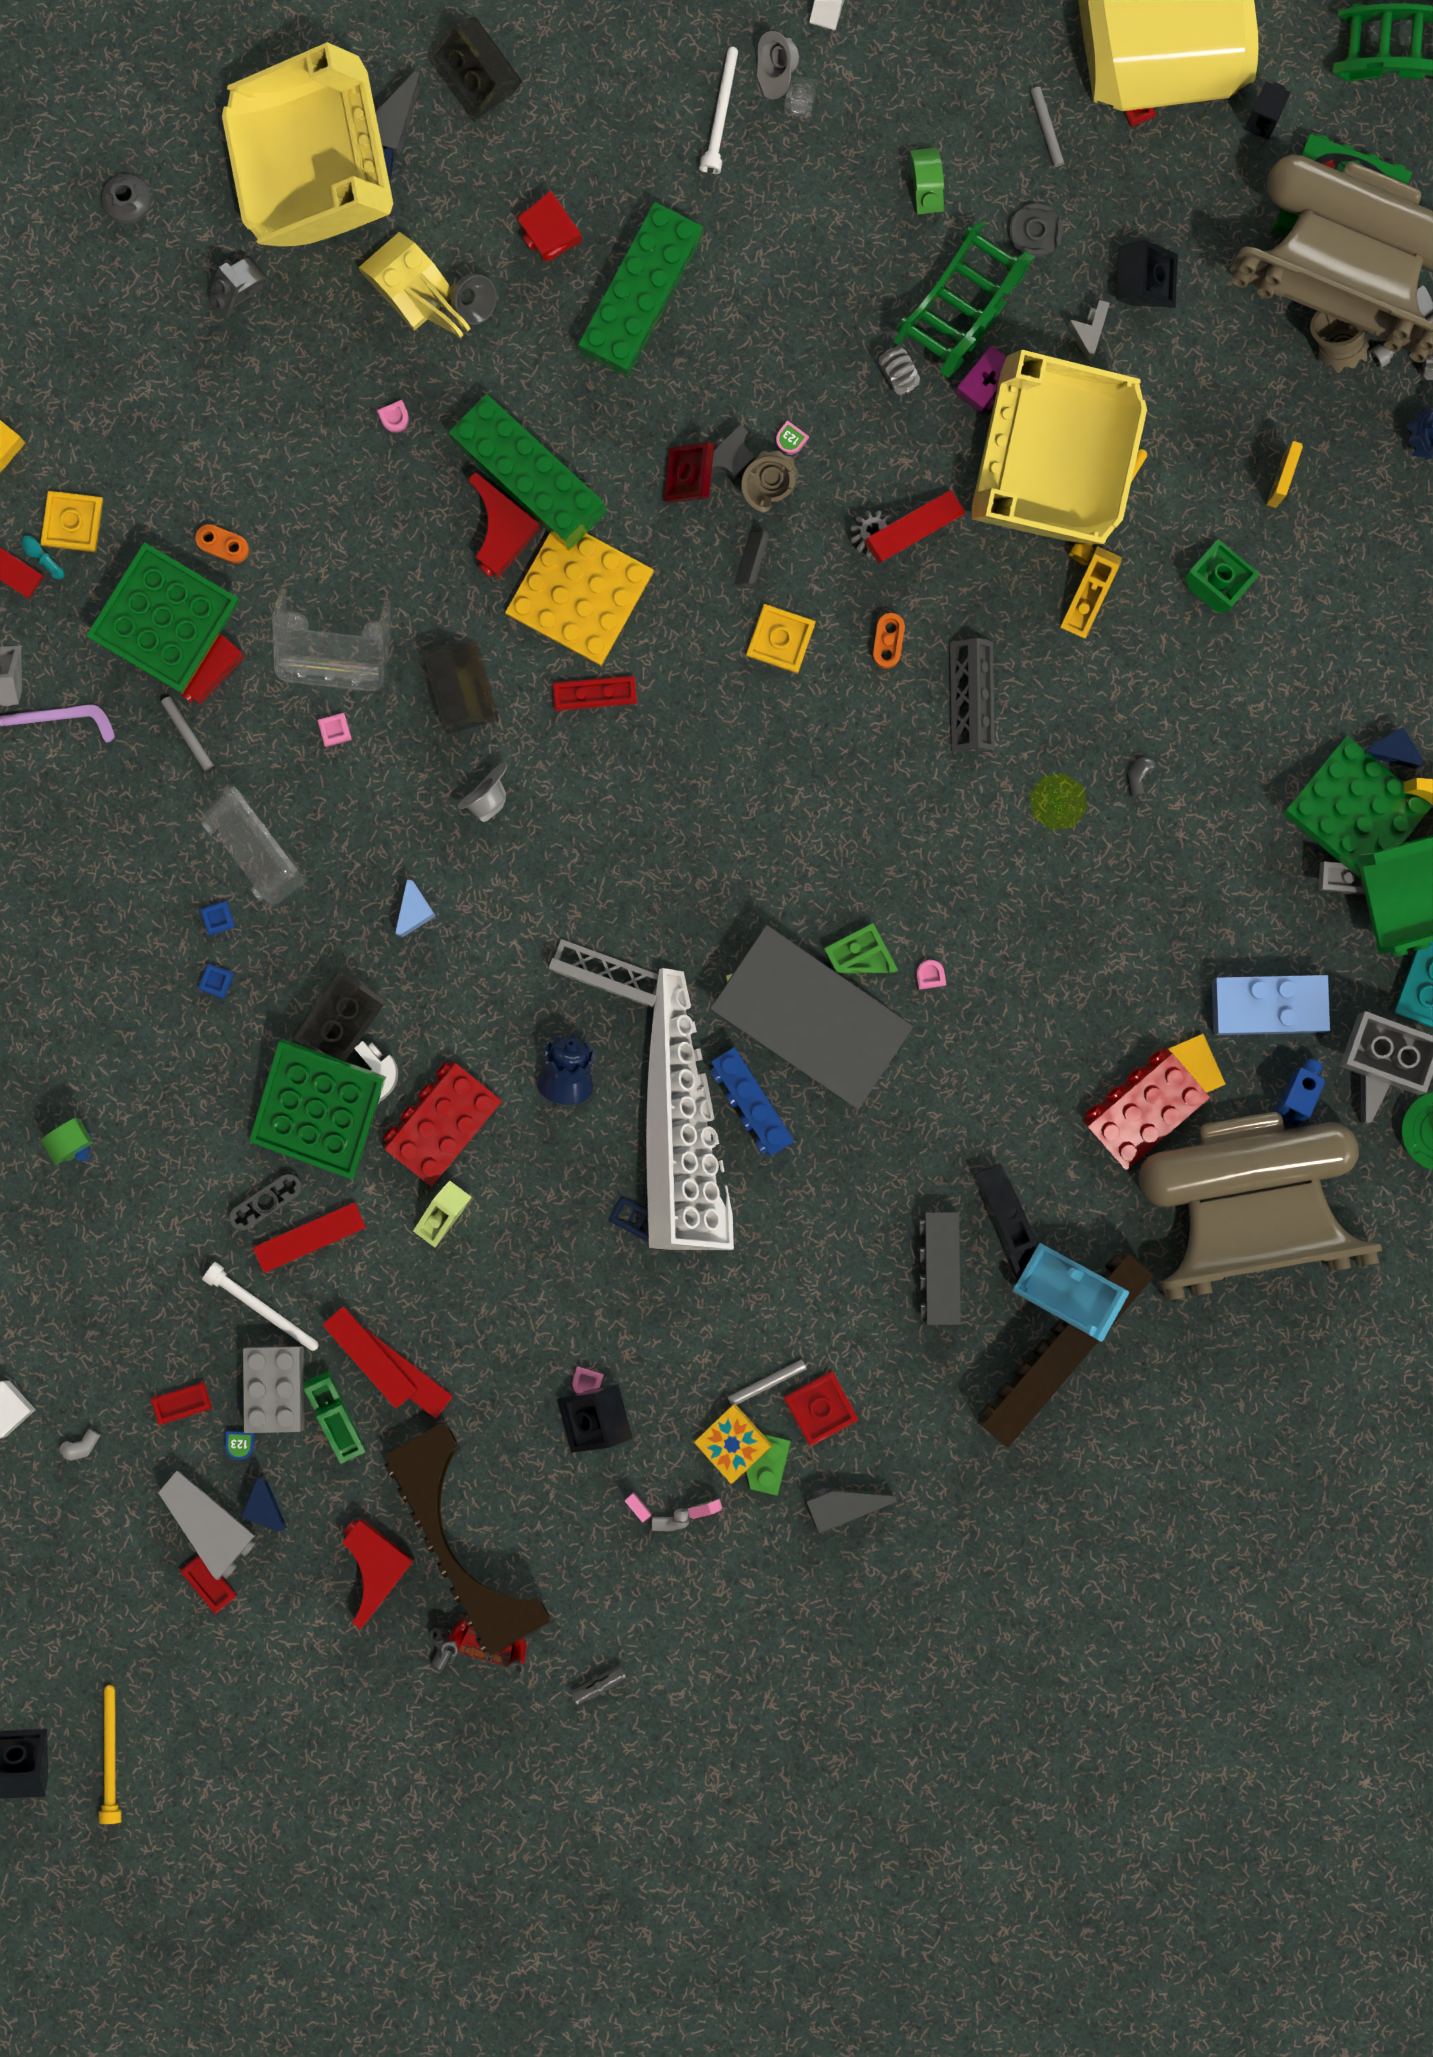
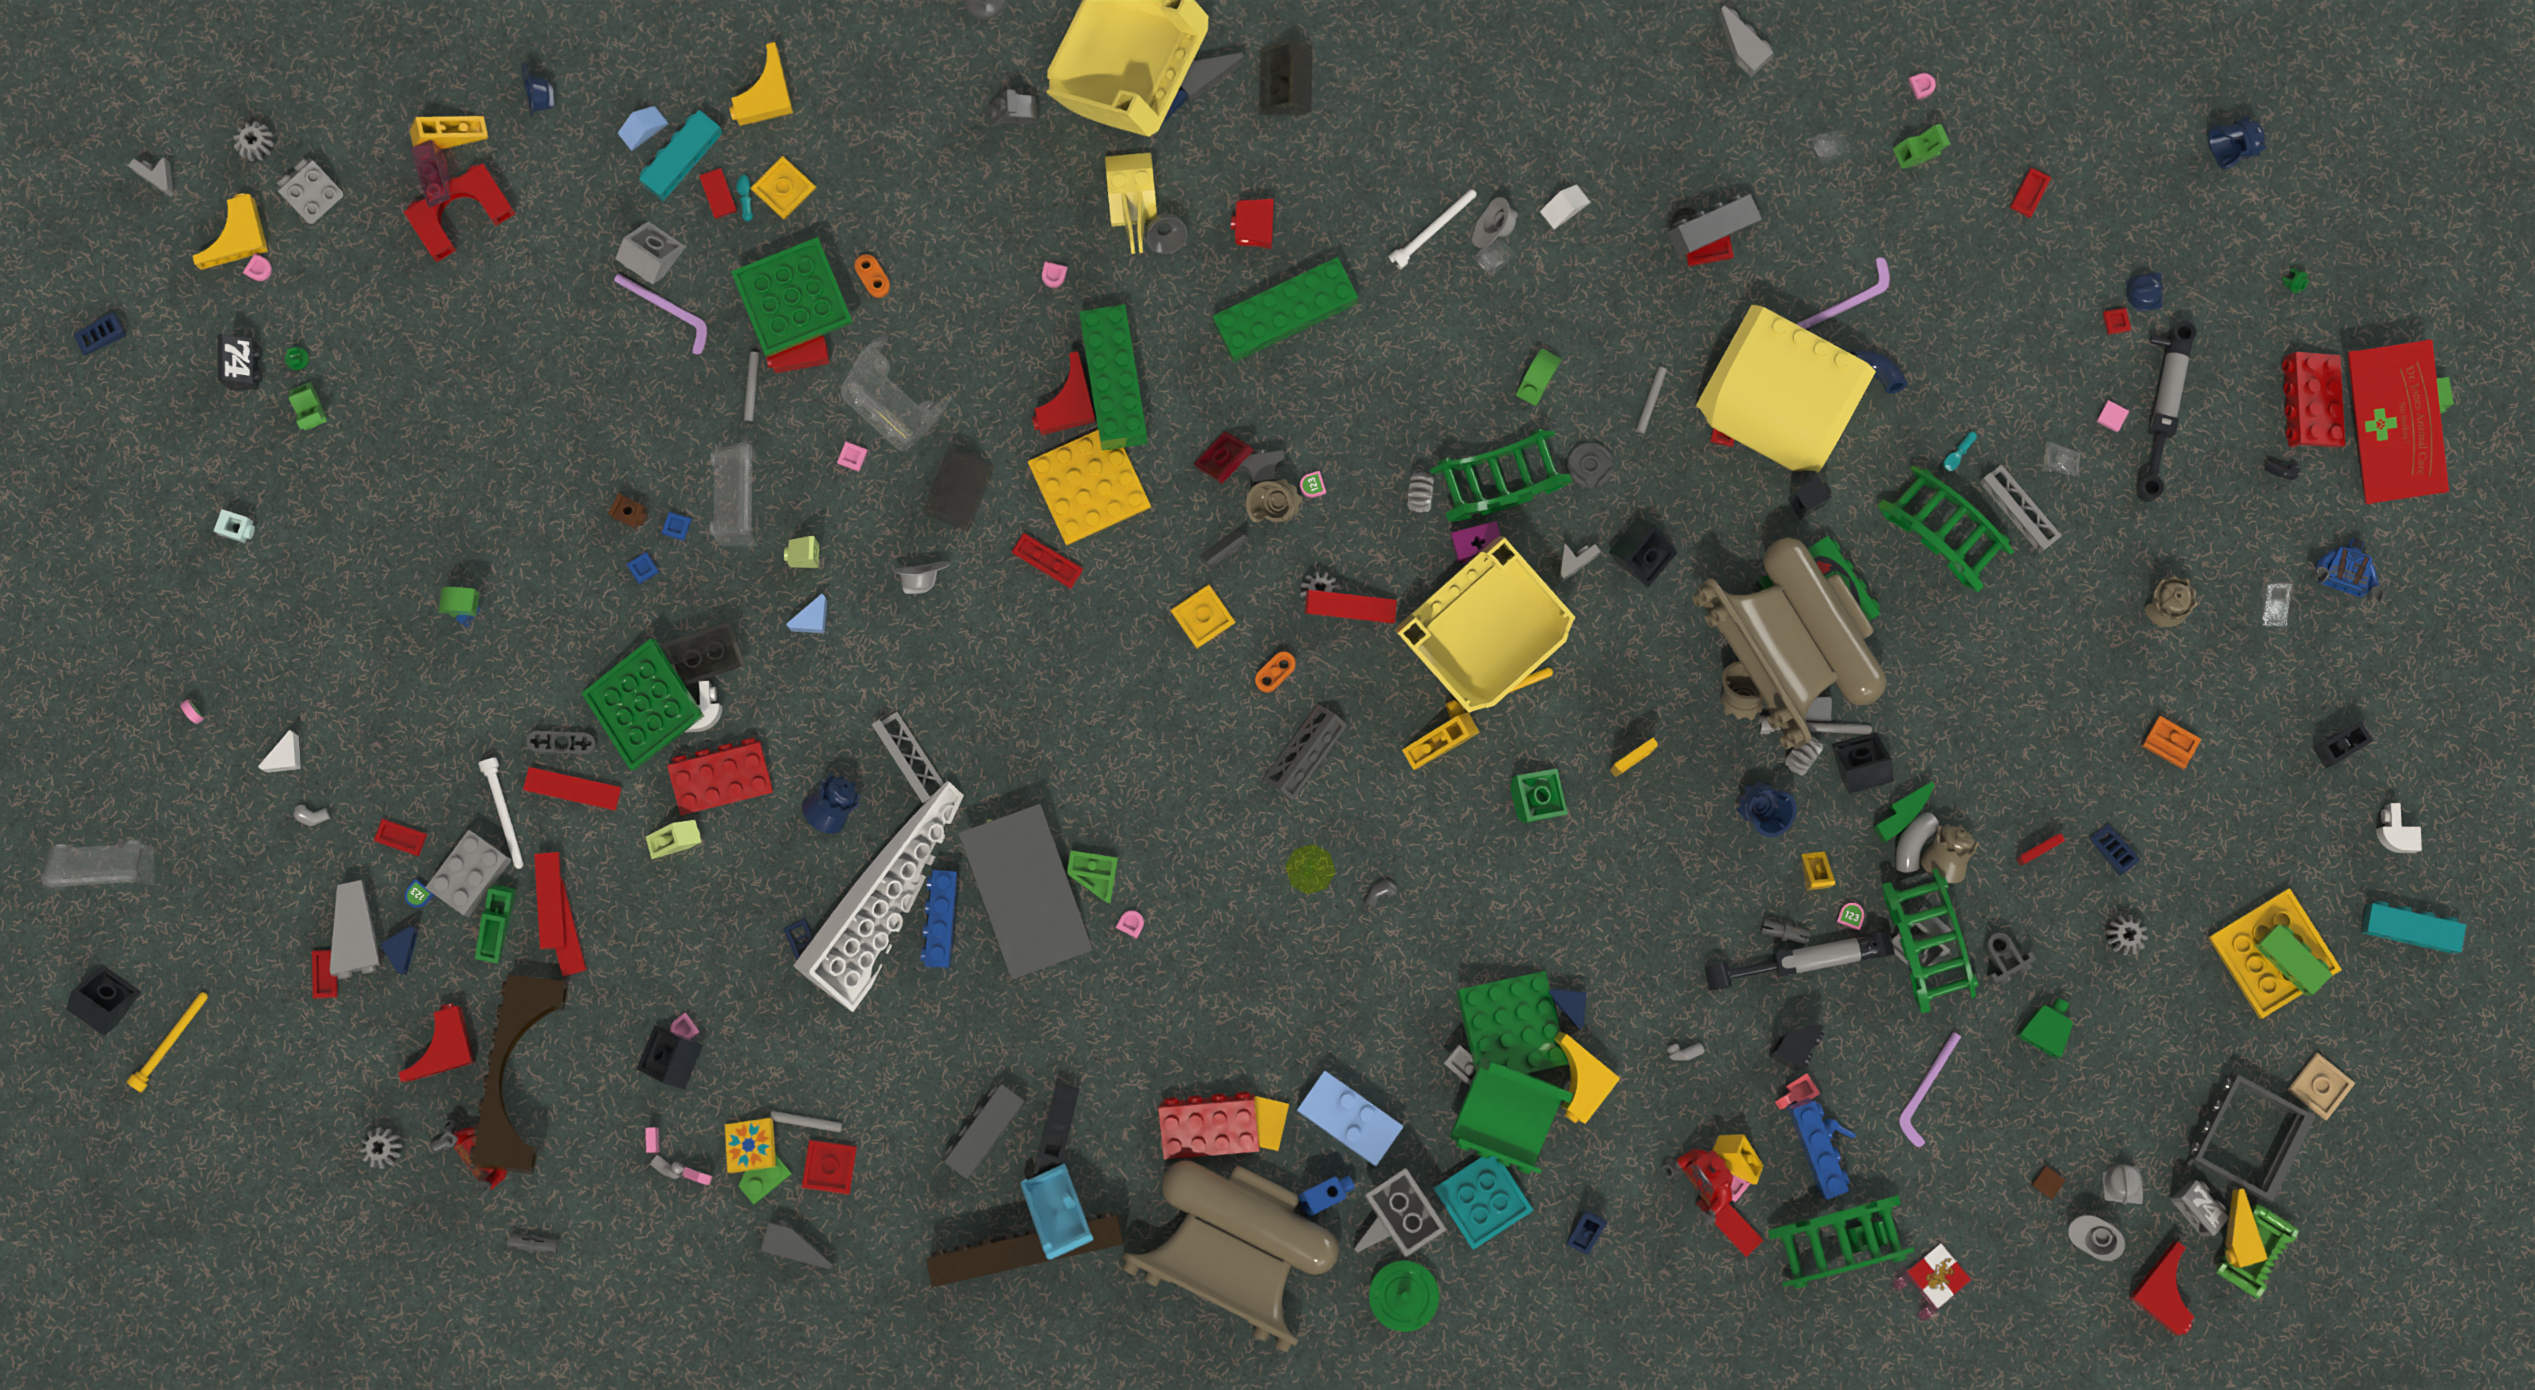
camera: 35 degrees right, 5 degrees down
(150, 941) = (633, 520): none -> reddish brown brick
(358, 855) = (802, 552): none -> yellowish green slope
(397, 1701) = (379, 1158): none -> light grey gear

